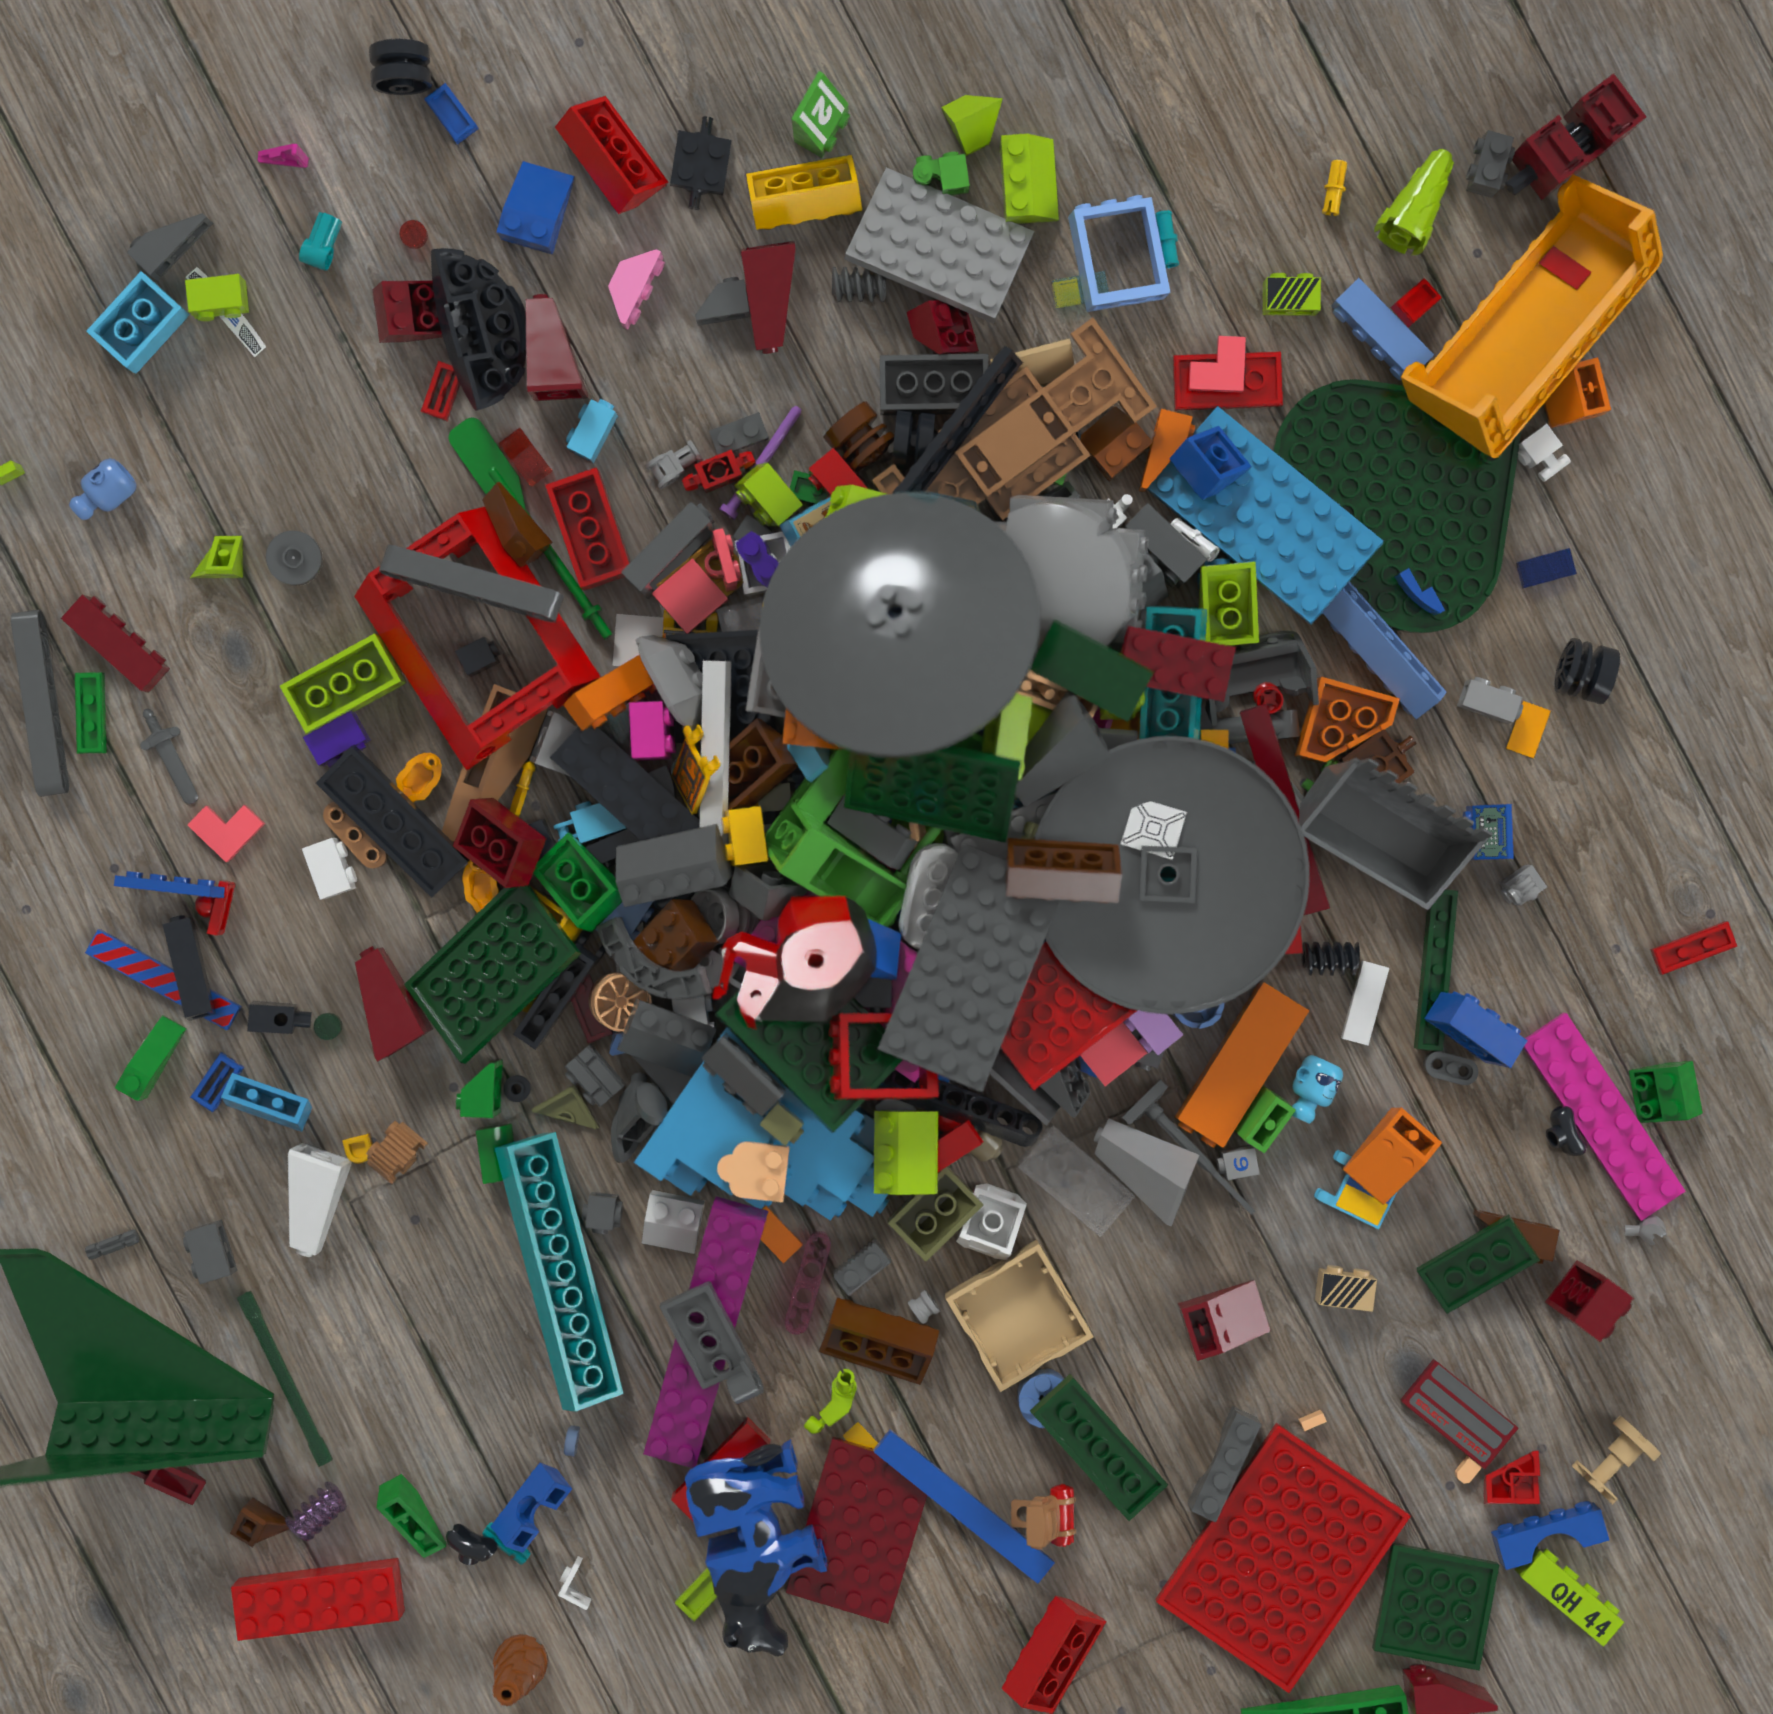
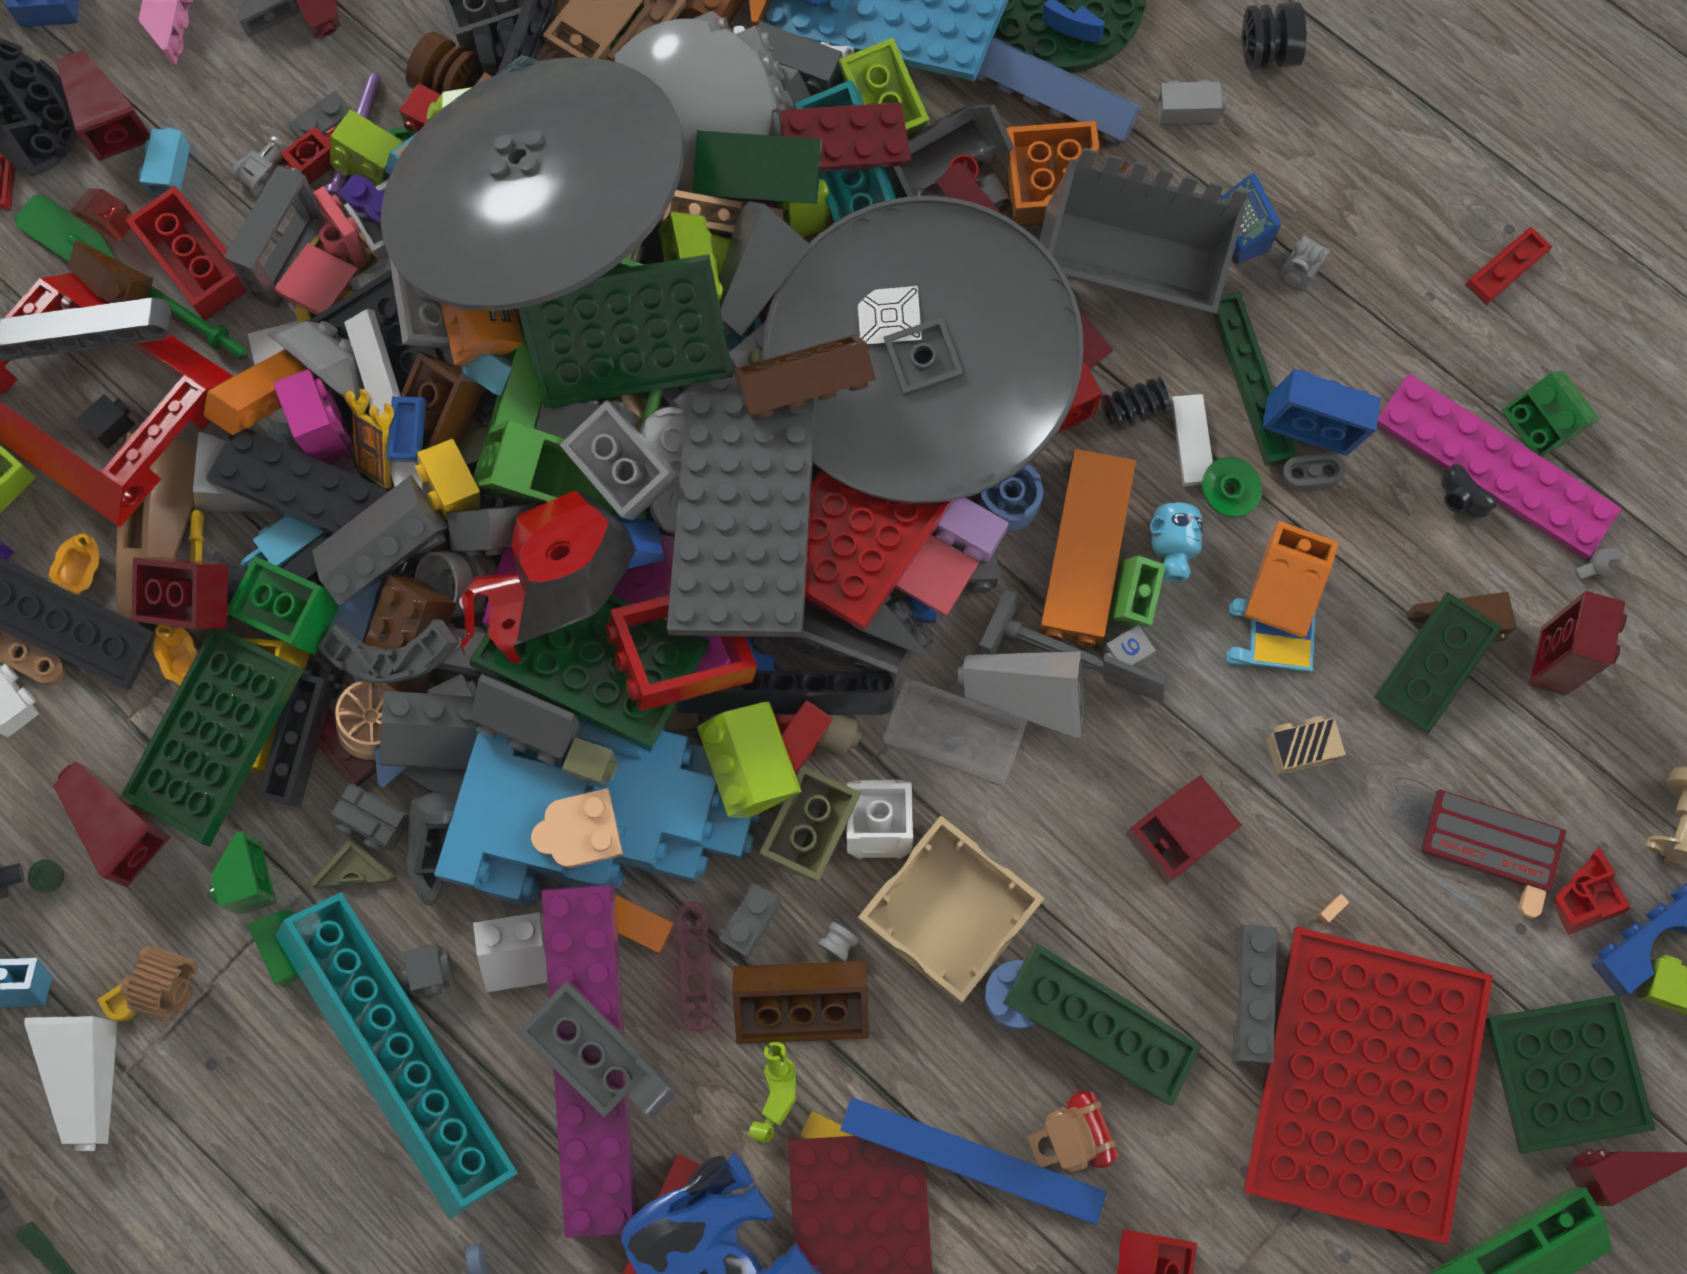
camera: 20 degrees left, 15 degrees down
(525, 1088) = (293, 871): black plate -> none
(725, 780) = (406, 429): none -> blue tile
(876, 995) = (643, 584): black slope -> none
(888, 887) = (619, 461): none -> light grey slope
(1389, 1061) = (1242, 481): none -> green dish
(1528, 730) = (1241, 121): light orange sticker -> none

